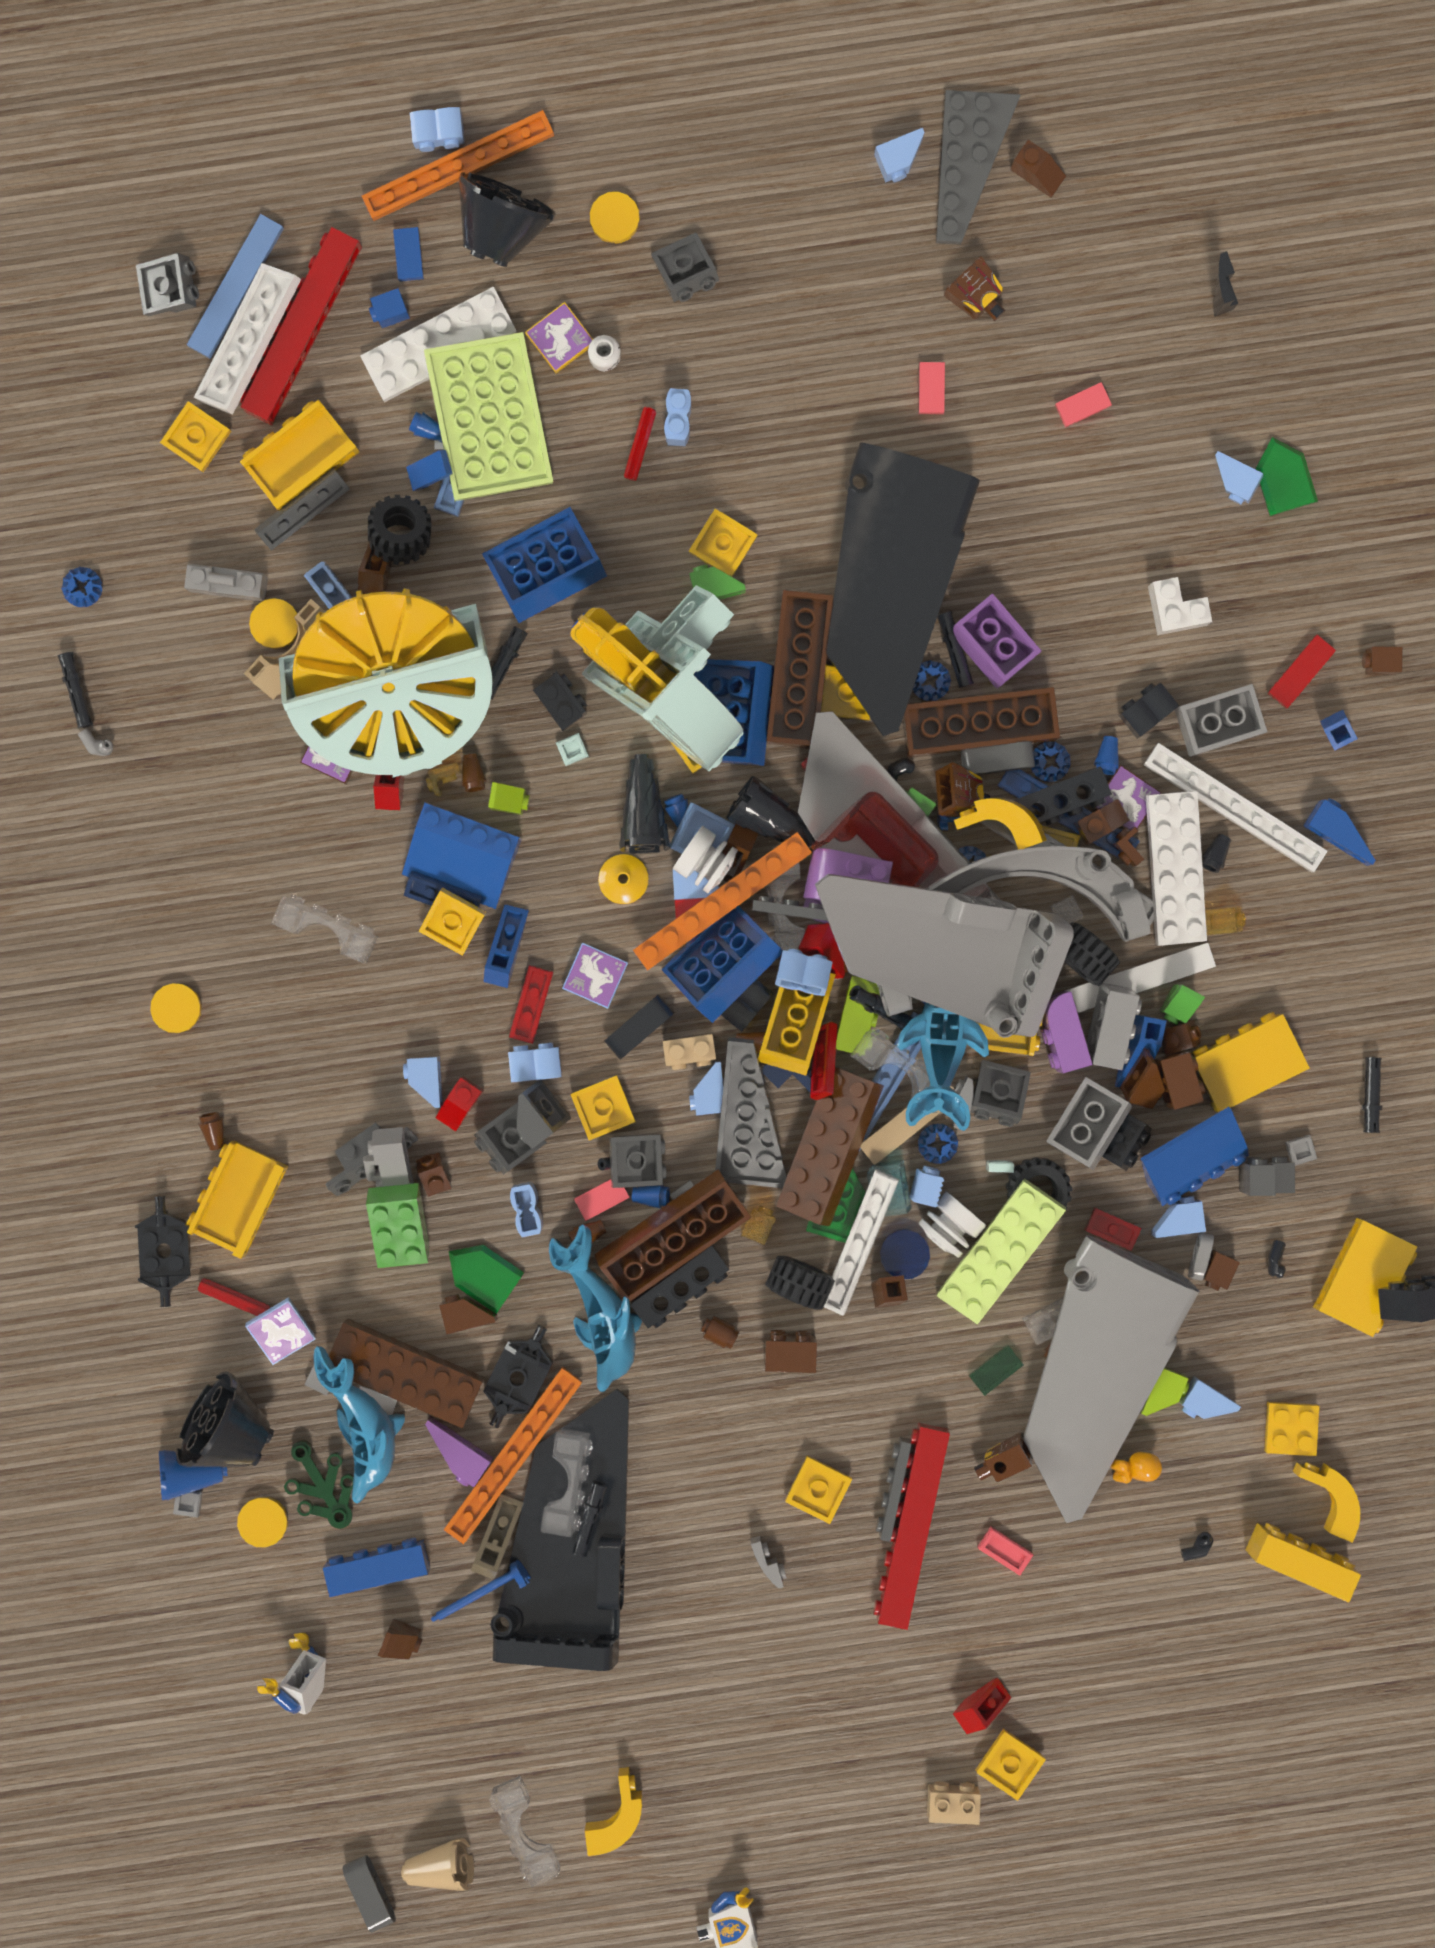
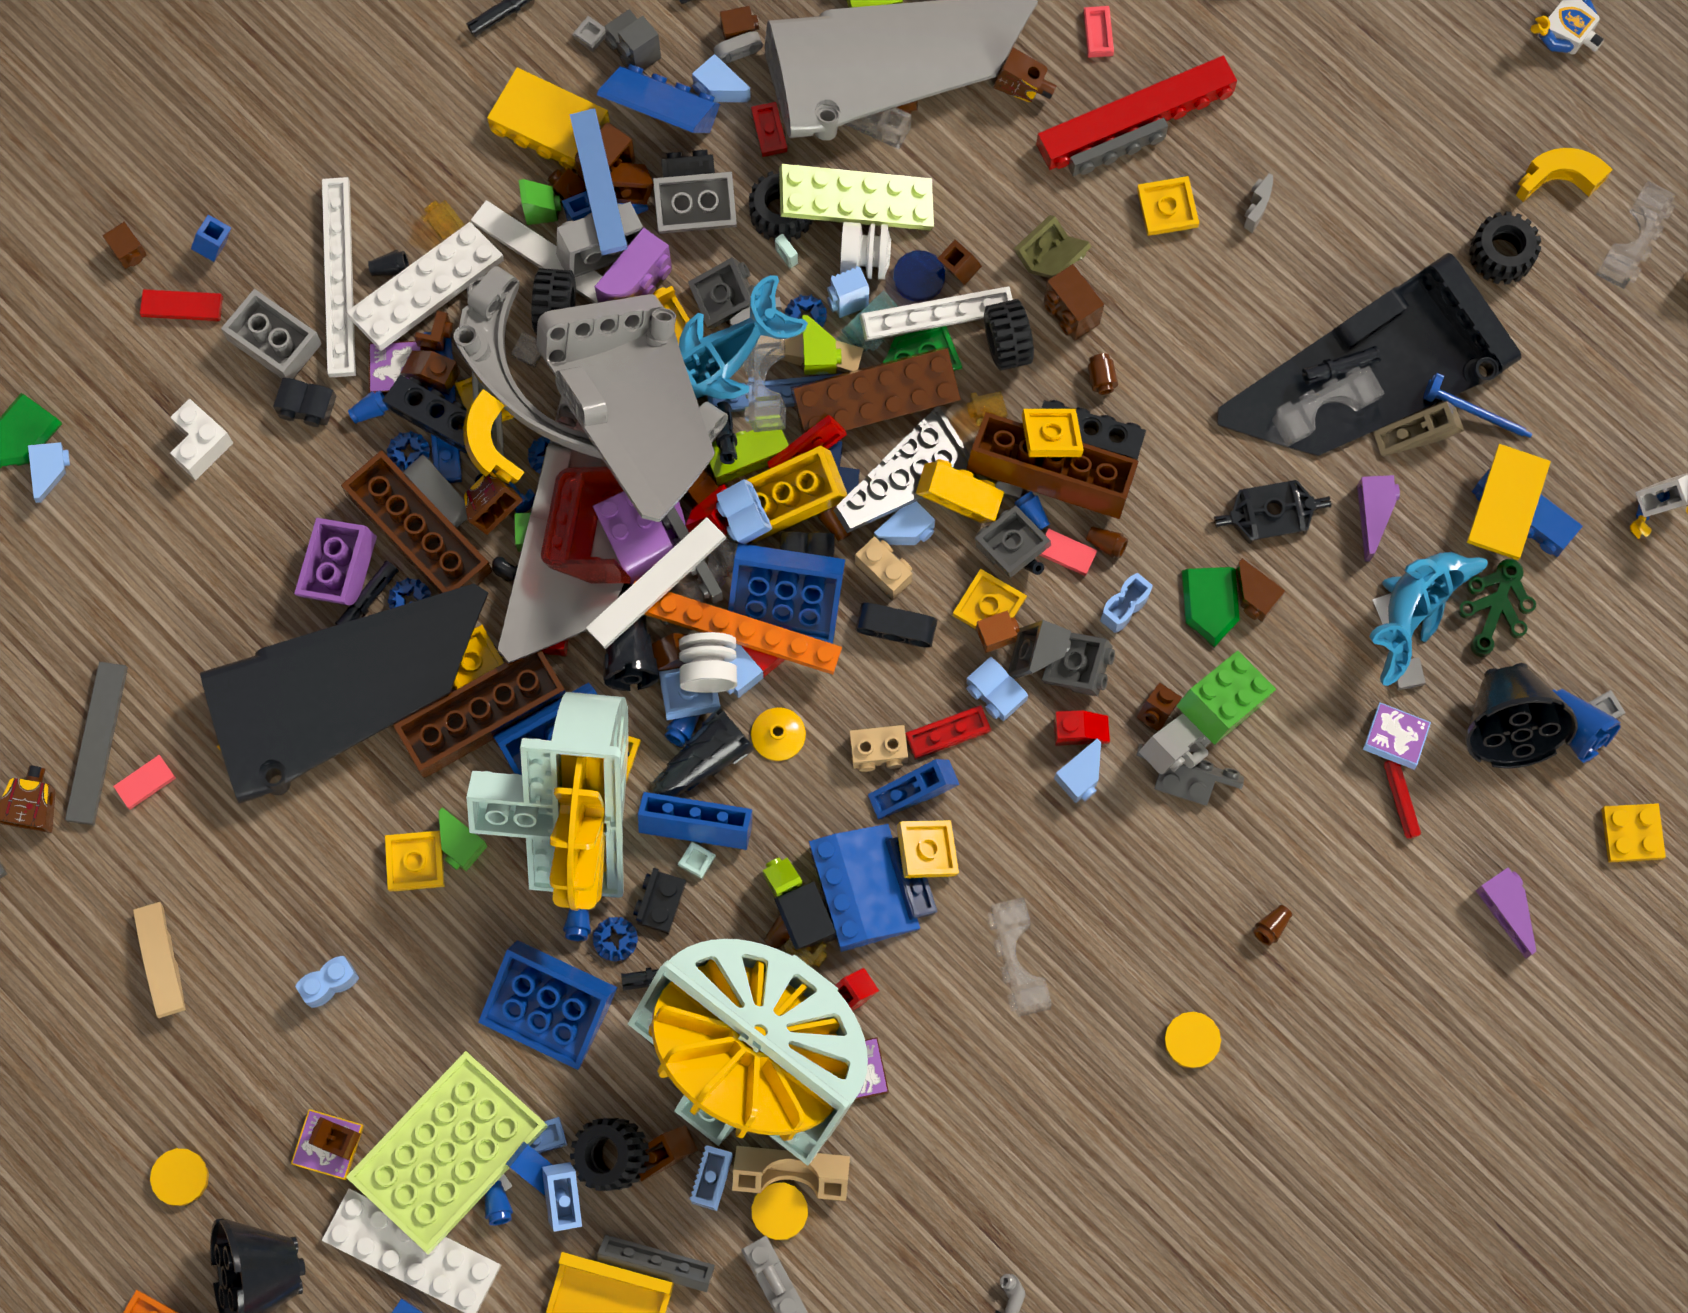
camera: 130 degrees left, 15 degrees down
(84, 1446) = (1633, 832): none -> yellow plate
(100, 1313) = (1509, 905): none -> medium lavender slope
(160, 1271) = (1425, 871): black plate -> none
(236, 1198) = (1314, 858): yellow panel -> none
(262, 1521) = (1568, 633): yellow tile -> none
(387, 1556) = (1508, 502): none -> yellow tile
(394, 474) = (562, 1196): none -> light blue brick
(400, 1641) = (1569, 444): reddish brown slope -> none
(407, 1373) = (1344, 601): reddish brown brick -> none
(465, 794) = (805, 917): none -> black slope
(513, 1455) = (1340, 466): orange plate -> none
(555, 943) = (878, 748): none -> tan brick
(556, 343) = (334, 1138): none -> reddish brown bracket
(562, 659) = (626, 944): none -> blue gear
(574, 1096) = (997, 631): none -> dark orange brick
(589, 1741) = (1514, 231): none -> black tyre
(595, 975) = (880, 696): tile -> none
(599, 767) = (695, 820): none -> blue brick
(607, 345) = (304, 1087): white head -> none
(610, 1323) = (1167, 462): dark azure animal -> none
(640, 443) = (375, 1000): red axle -> none
(685, 268) = (182, 1075): dark grey plate -> none
(694, 1253) = (1052, 433): none -> yellow plate
(703, 1150) = (960, 491): none -> yellow brick
(784, 307) = (159, 960): none -> tan slope
(795, 865) = (656, 583): none -> white tile
(846, 1369) = (1050, 249): none -> olive bracket
(893, 1128) = (819, 349): none -> lime slope
(988, 373) = (96, 743): none -> dark grey tile
(996, 1370) = (957, 139): clear green tile -> none
(1083, 404) = (69, 643): coral tile -> none
(1155, 1056) = (598, 182): none -> medium blue tile
(1337, 828) = (297, 183): blue slope -> none

